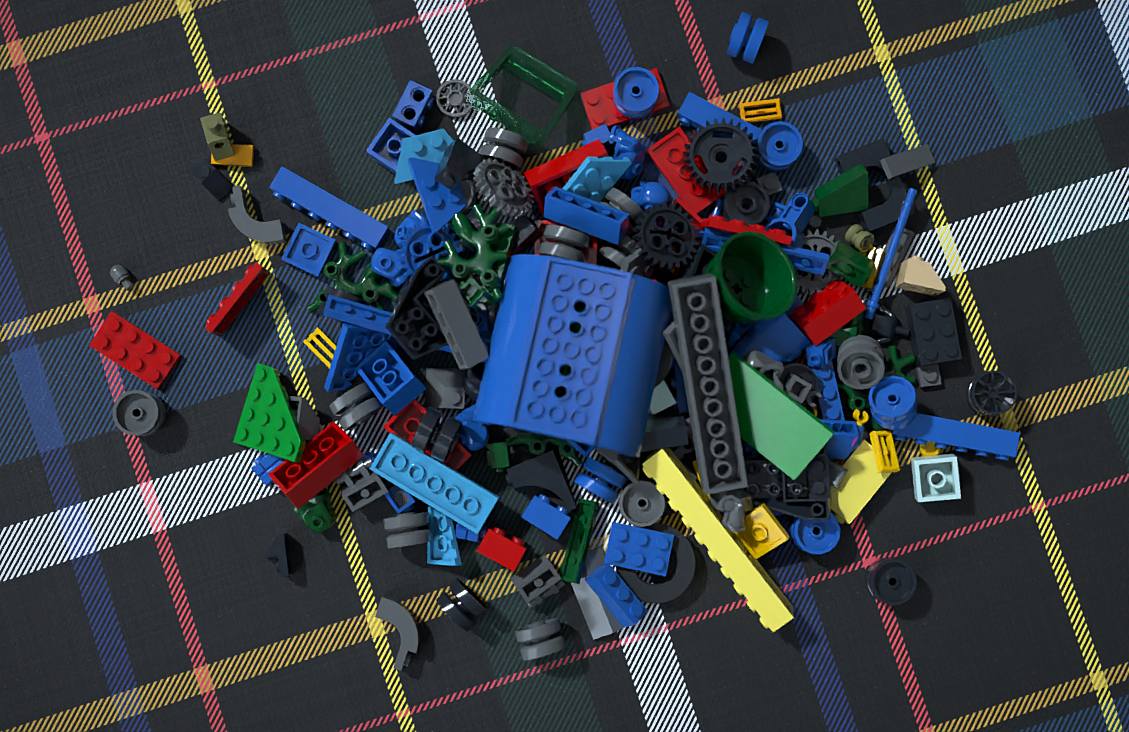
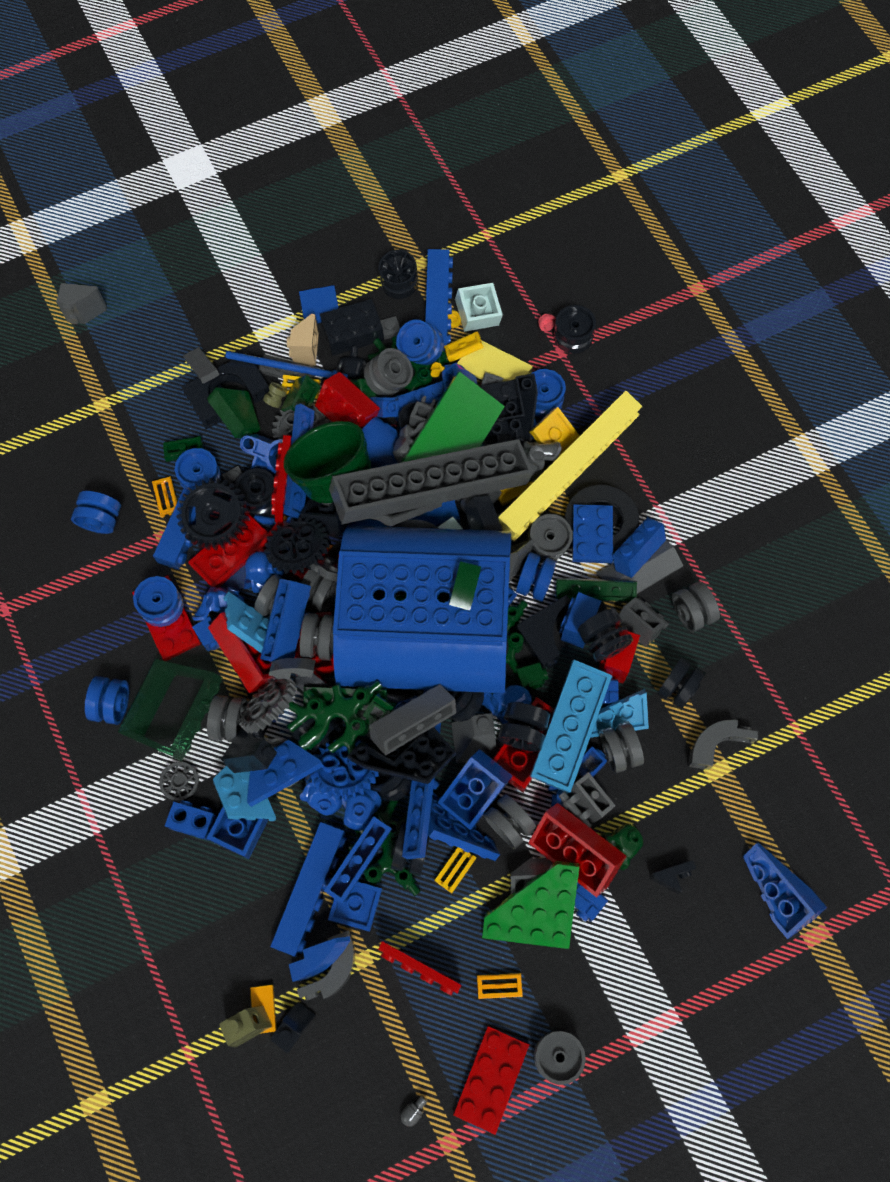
camera: 100 degrees left, 15 degrees down
(213, 371) = (518, 985): none -> light orange tile
(240, 660) = (788, 898): none -> blue wedge
(262, 207) = (318, 958): none -> blue slope
(342, 256) = (358, 860): none -> blue brick
(512, 532) = (604, 635): none -> black wheel
(535, 211) = (284, 667): none -> dark grey slope
(542, 34) = (107, 700): none -> blue wheel
(569, 392) = (465, 585): none -> dark green slope
(811, 134) = (174, 449): none -> dark green brick
(906, 552) = (546, 322): none -> coral plate
(971, 300) = (318, 301): none -> blue tile
(1005, 36) = (80, 302): none -> dark grey slope

